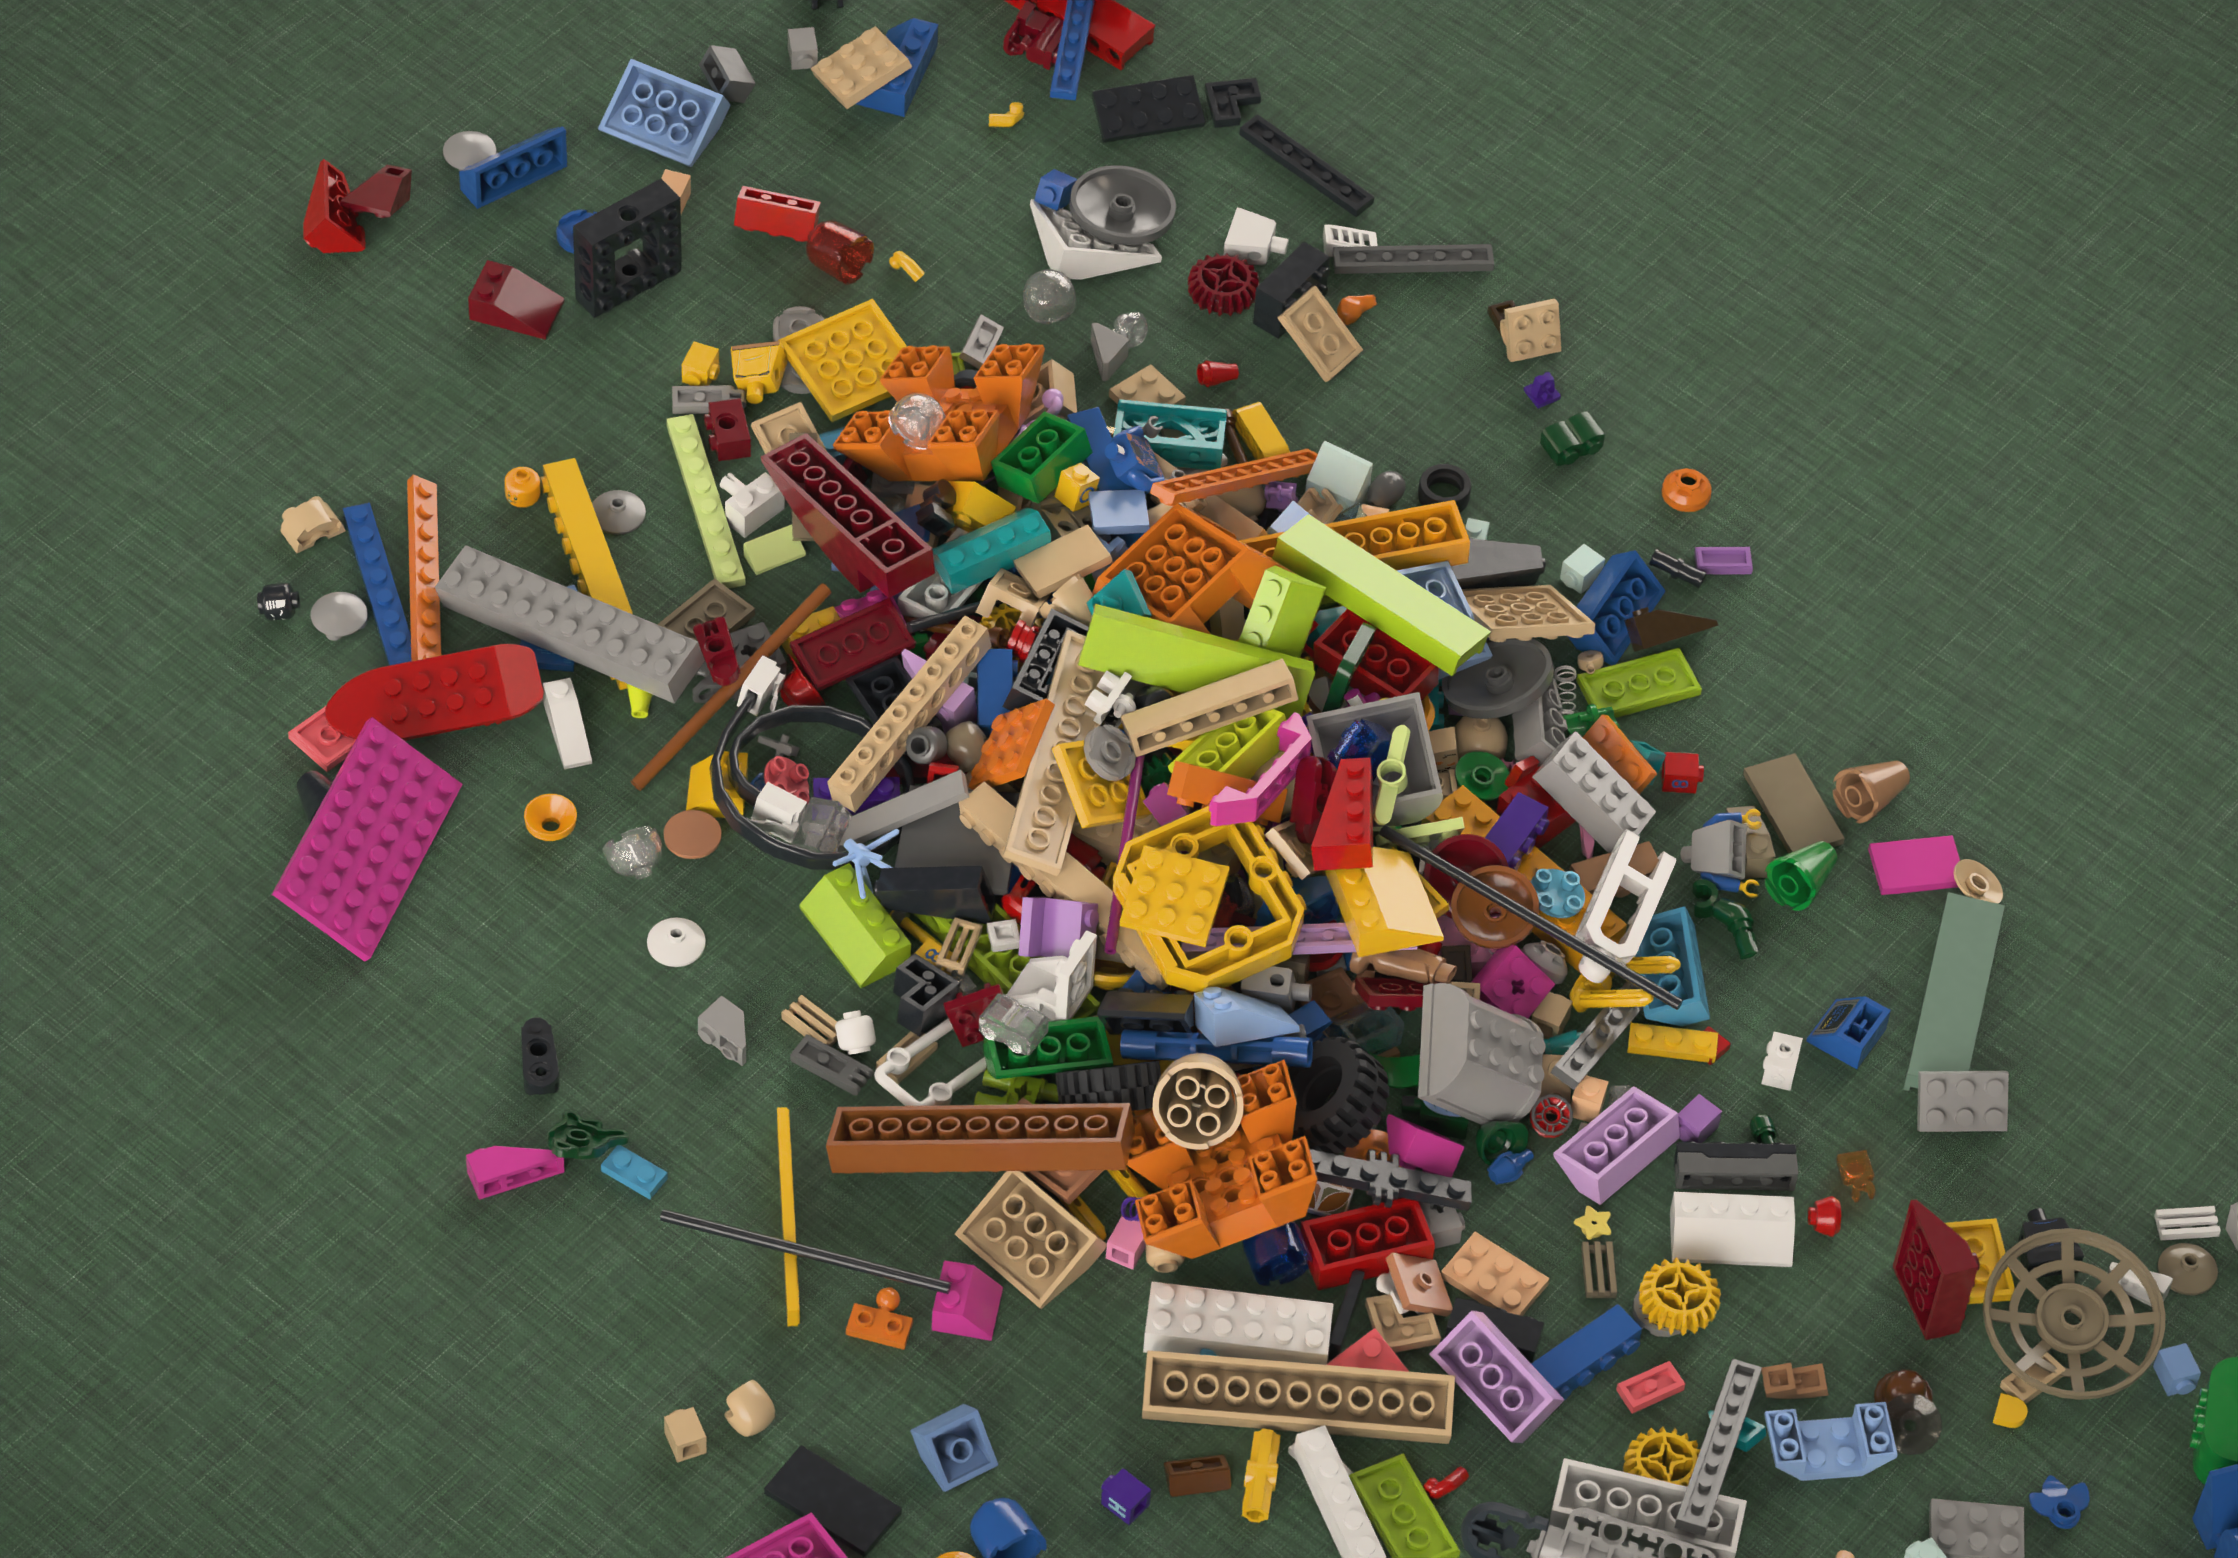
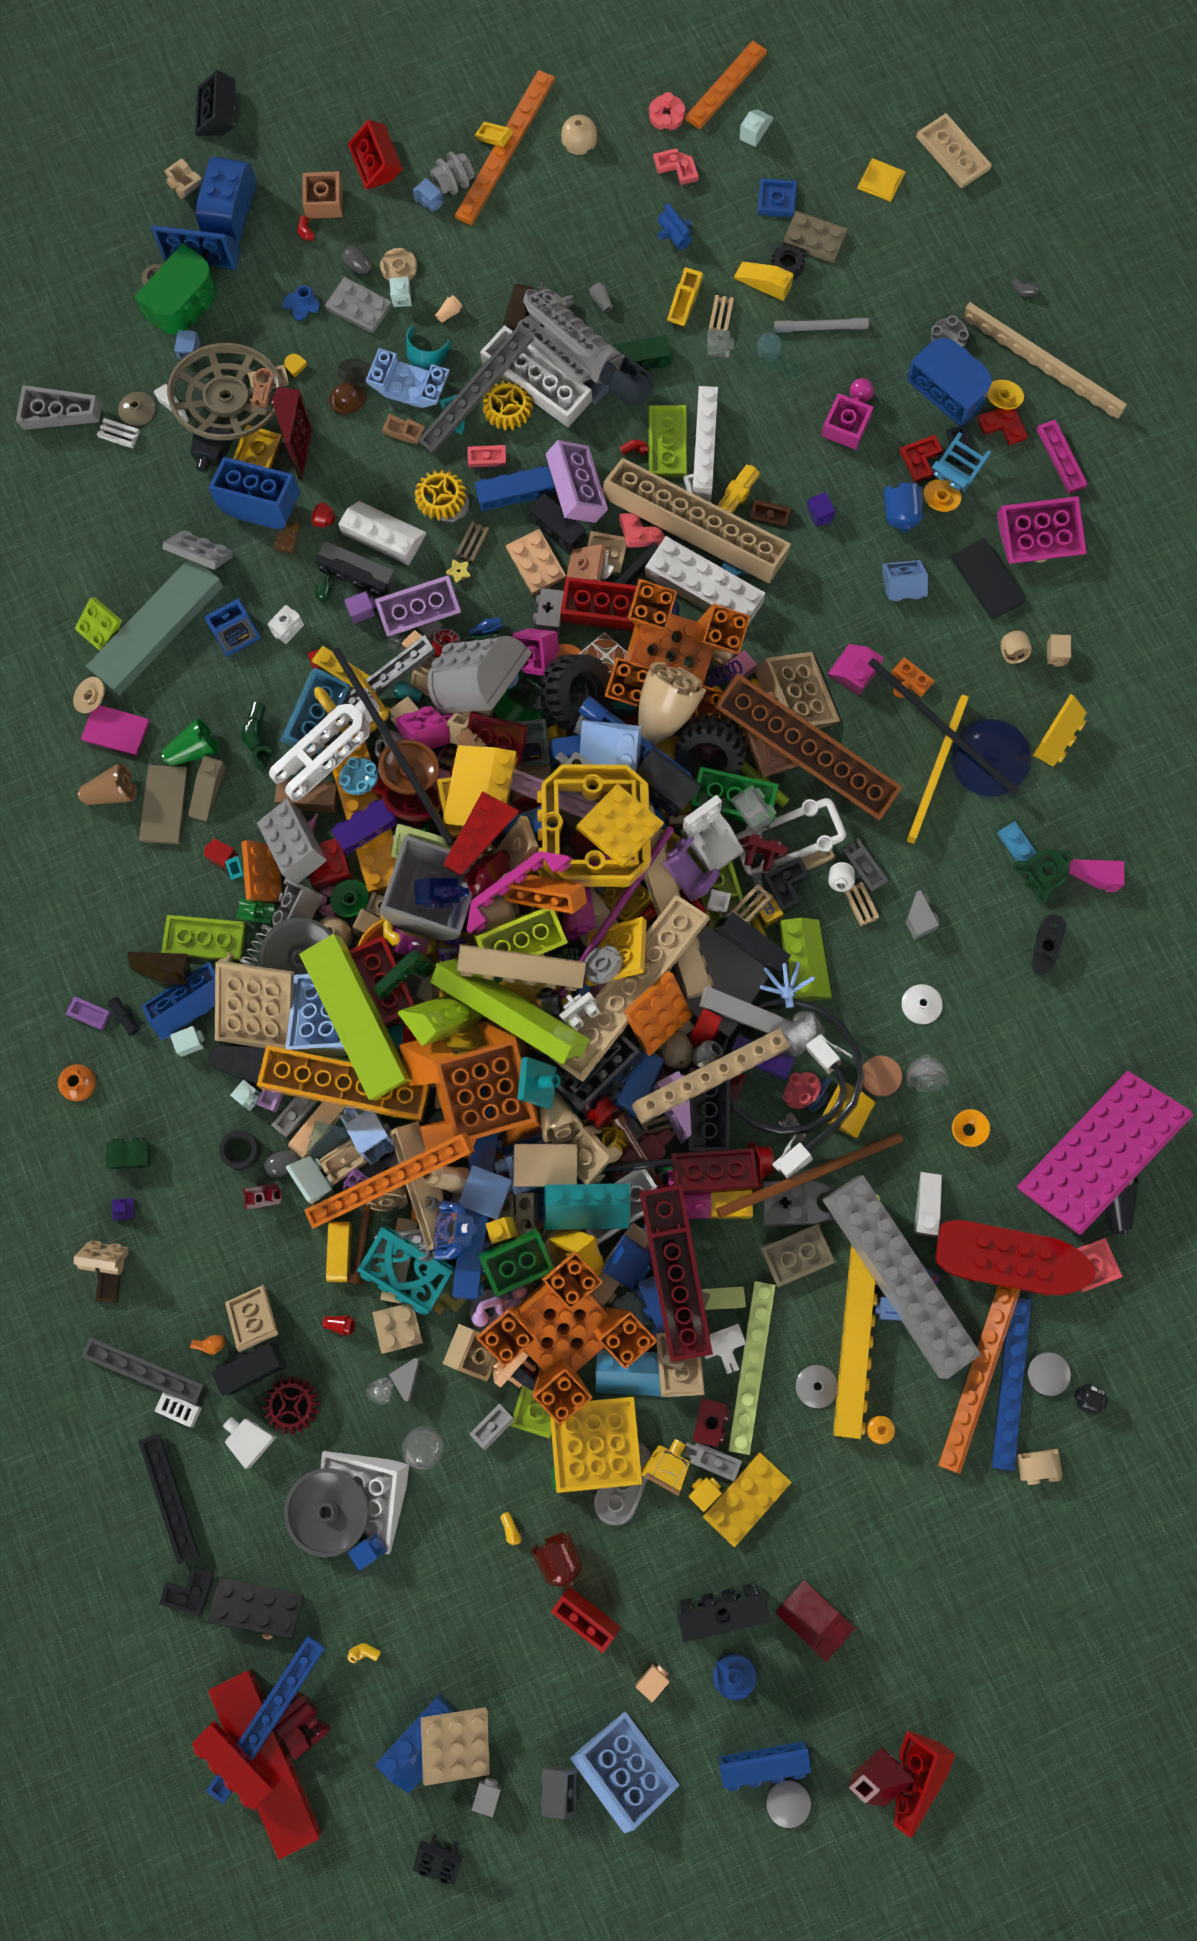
camera: 145 degrees left, 25 degrees up
(635, 1319) = (1061, 732): none -> yellow slope
(647, 383) = (747, 1499): none -> yellow plate
(717, 1274) = (1001, 746): none -> clear blue dish
(718, 650) = (813, 1181): dark red piece -> none
(916, 419) = (592, 1324): clear cylinder -> none
(932, 511) = (604, 1260): black leg -> none
(1387, 449) = (262, 1195): none -> dark red hips
(1389, 1181) = (577, 624): black hinge -> none
(1394, 763) = (424, 864): yellowish green piece -> none
(1520, 770) = (324, 885): red tile -> none
(1720, 851) = (233, 777): light grey torso -> none
(1849, 1482) = (422, 358): none -> teal piece
(1947, 1178) = (254, 493): none -> blue brick
(2017, 963) = (98, 623): none -> lime plate
(2018, 1325) = (262, 390): none -> nougat piece

